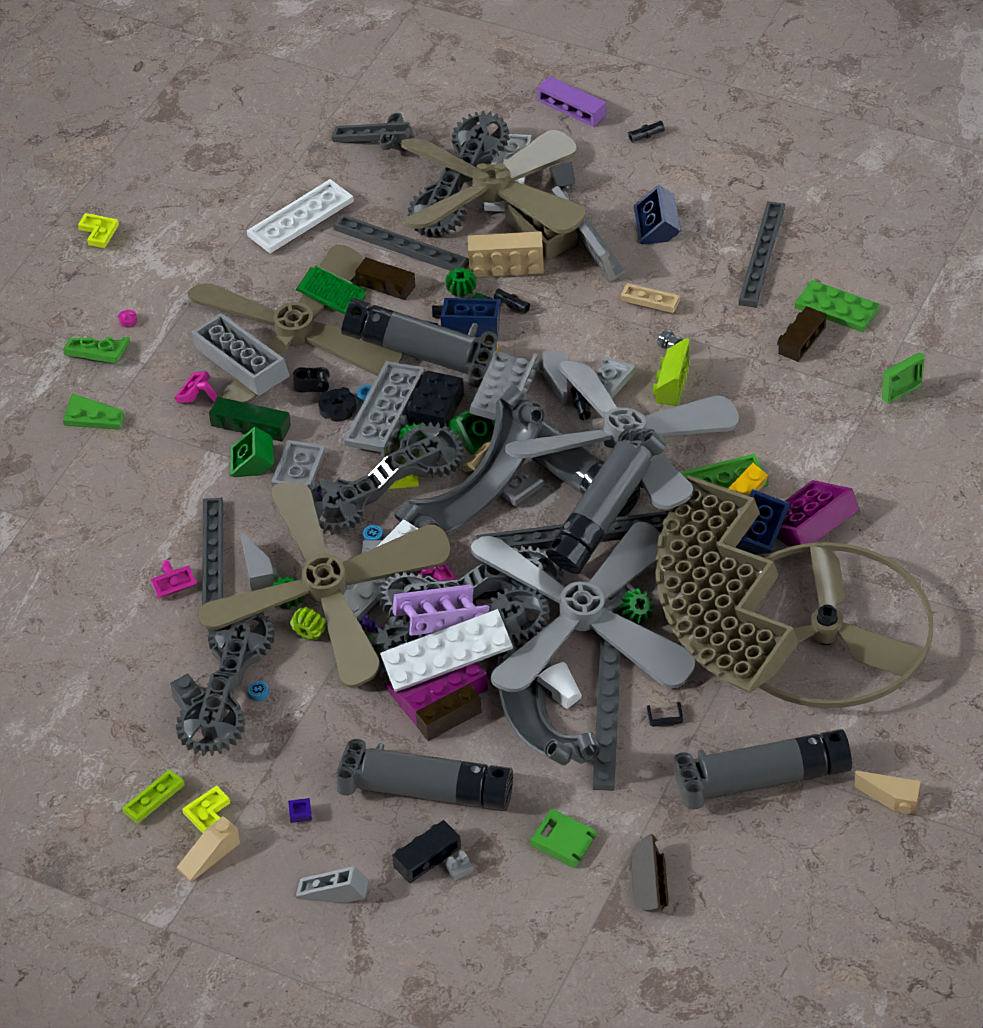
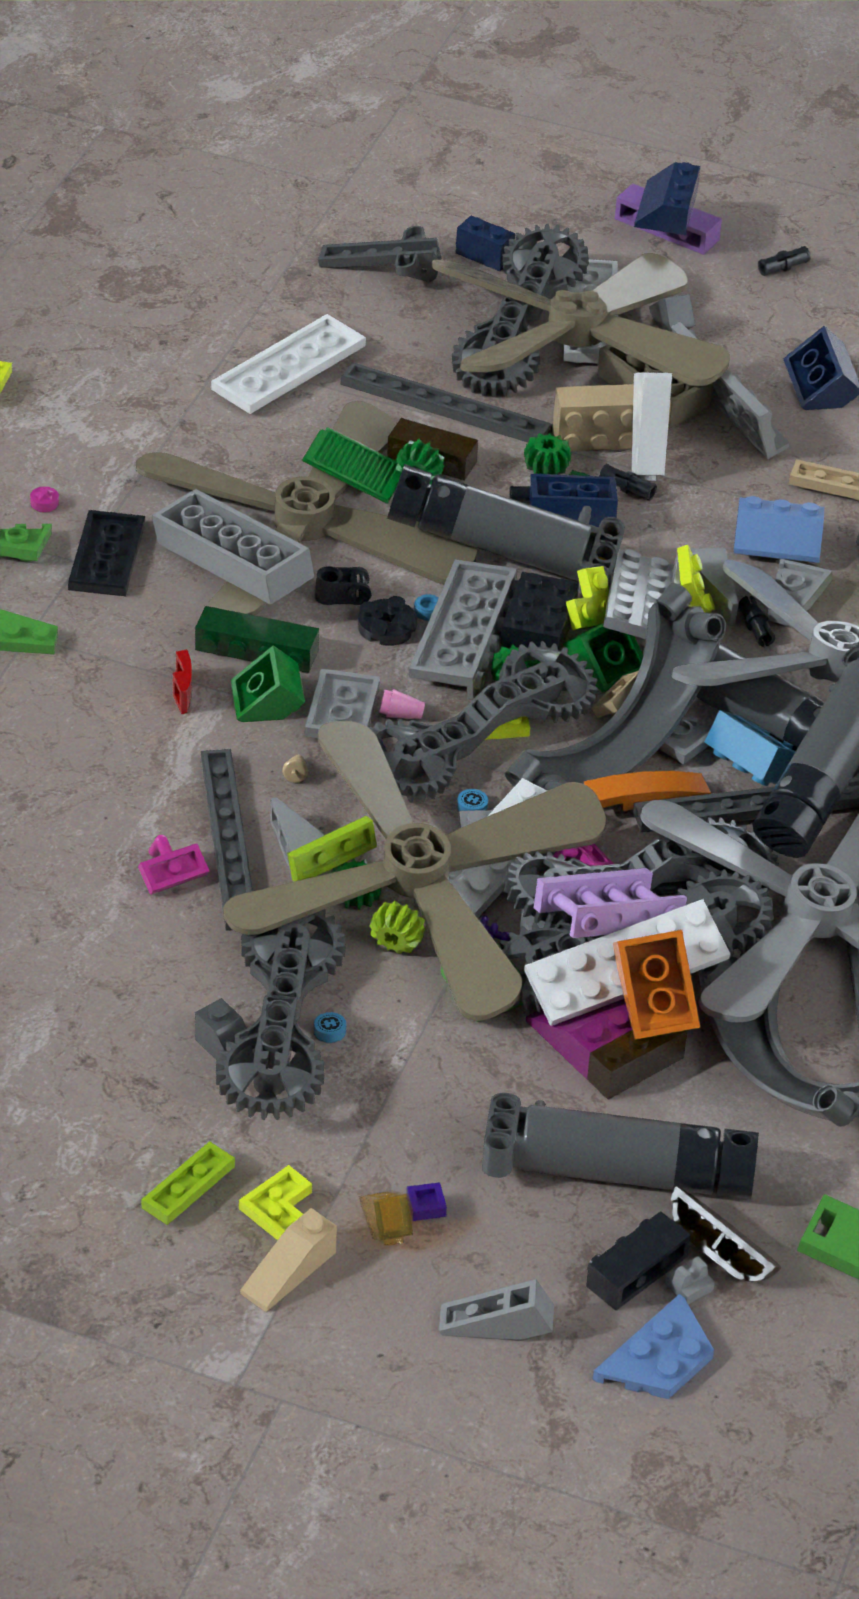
camera: 10 degrees left, 5 degrees down
(162, 356) = (106, 553): none -> black tile
(192, 387) = (162, 593): dark pink plate -> none
(198, 450) = (183, 681): none -> red slope
(262, 511) = (295, 769): none -> tan hair
(272, 571) = (332, 849): none -> lime plate
(273, 820) = (387, 1216): none -> clear yellow slope
(335, 465) = (400, 705): none -> bright pink cone
(373, 290) = (421, 457): none -> green gear
(432, 913) = (660, 1354): none -> medium blue wing
(441, 121) = (482, 242): none -> dark blue brick
(459, 667) = (656, 984): none -> orange slope
(471, 381) = (590, 609): none -> neon yellow plate
(481, 837) = (721, 1239): none -> dark brown brick
(484, 524) = (646, 786): none -> orange slope
(526, 262) = (650, 423): none -> white slope
(537, 380) = (692, 580): none -> neon yellow plate
(555, 494) = (749, 747): none -> dark azure wedge
(561, 684) = (800, 1011): white slope -> none
(571, 89) = (669, 199): none -> dark blue slope
(605, 336) = (779, 529): none -> medium blue slope

